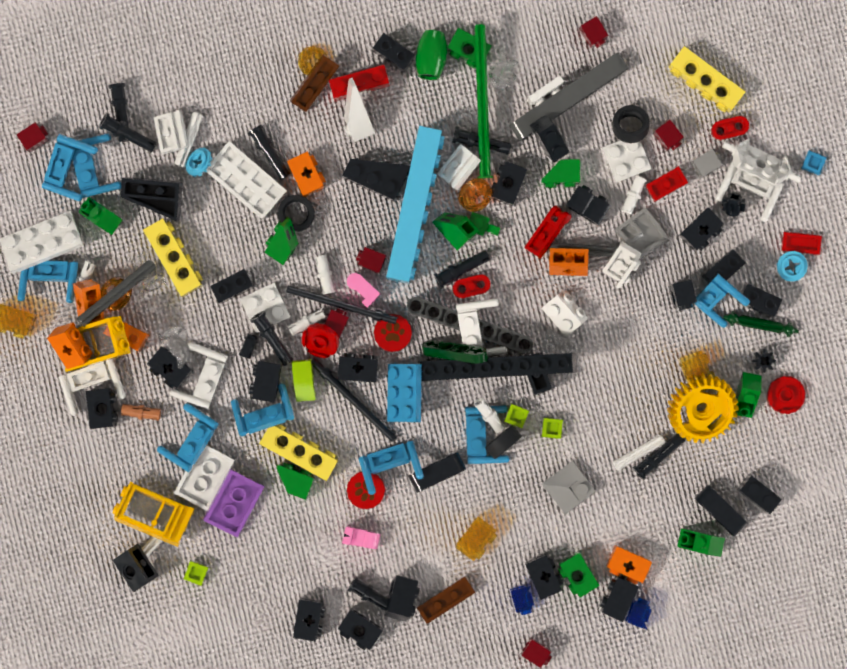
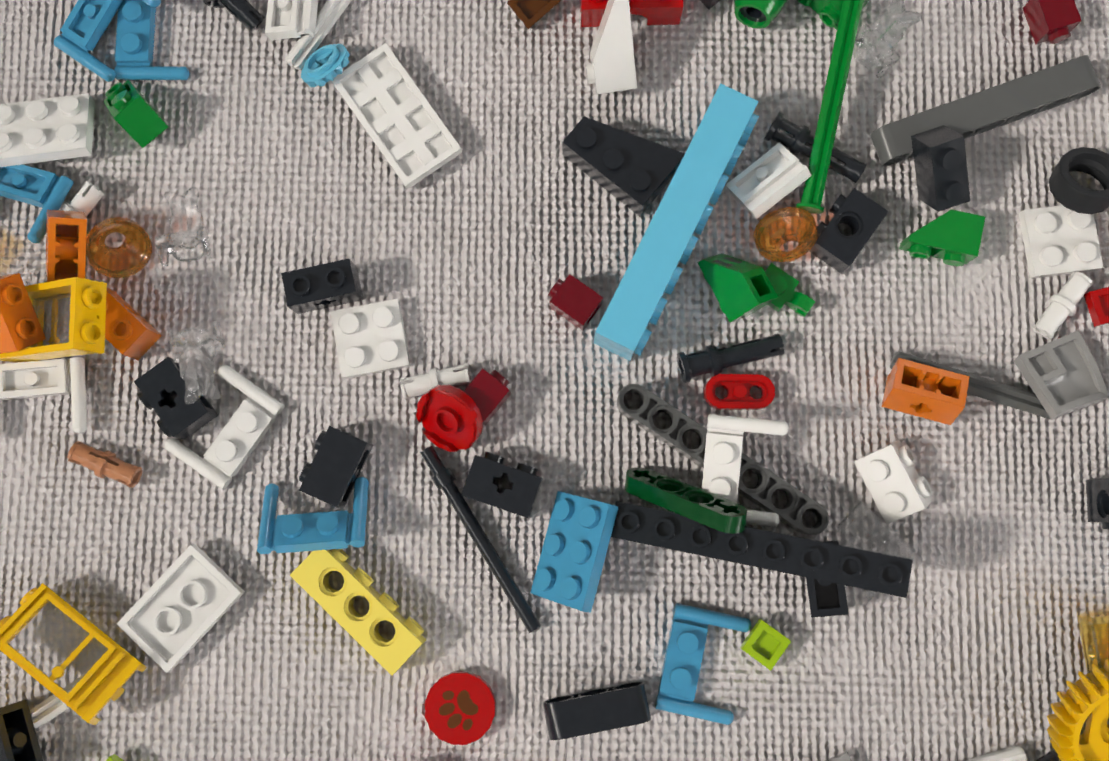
camera: 20 degrees right, 5 degrees down
(94, 399) = (24, 426): black brick -> none
(116, 293) = (112, 244): dark grey axle -> none
(154, 234) = (216, 166): light yellow brick -> none
(157, 195) = (237, 99): black wedge -> none
(195, 441) = (179, 542): dark azure plate -> none
(233, 503) = (216, 670): medium lavender plate -> none
(248, 346) = (323, 396): black pin -> none
(264, 144) = (444, 64): black pin -> none
(267, 331) = (360, 377): black pin -> none
(283, 242) = (429, 231): green slope -> none
(295, 482) = (337, 660): green slope -> none
(297, 198) = (453, 169): black tyre -> none
(303, 380) = (401, 481): lime slope -> none
(307, 185) = (497, 110): orange brick -> none
(324, 274) = (488, 306): white pin -> none
(364, 288) = (543, 337): bright pink leg -> none
(377, 315) = (561, 399): black bar -> none
(389, 459) = (514, 664): dark azure plate -> none
(392, 336) = (580, 438): red tile -> none
(489, 415) = (717, 630): white pin -> none
(503, 442) = (732, 688): black tyre -> none
(547, 231) = (896, 330): red plate -> none
(550, 88) = (948, 89): white plate -> none
(552, 428) = (824, 684): lime plate -> none
(588, 205) = (979, 302): black brick -> none
(622, 263) = (1023, 419): white bracket -> none

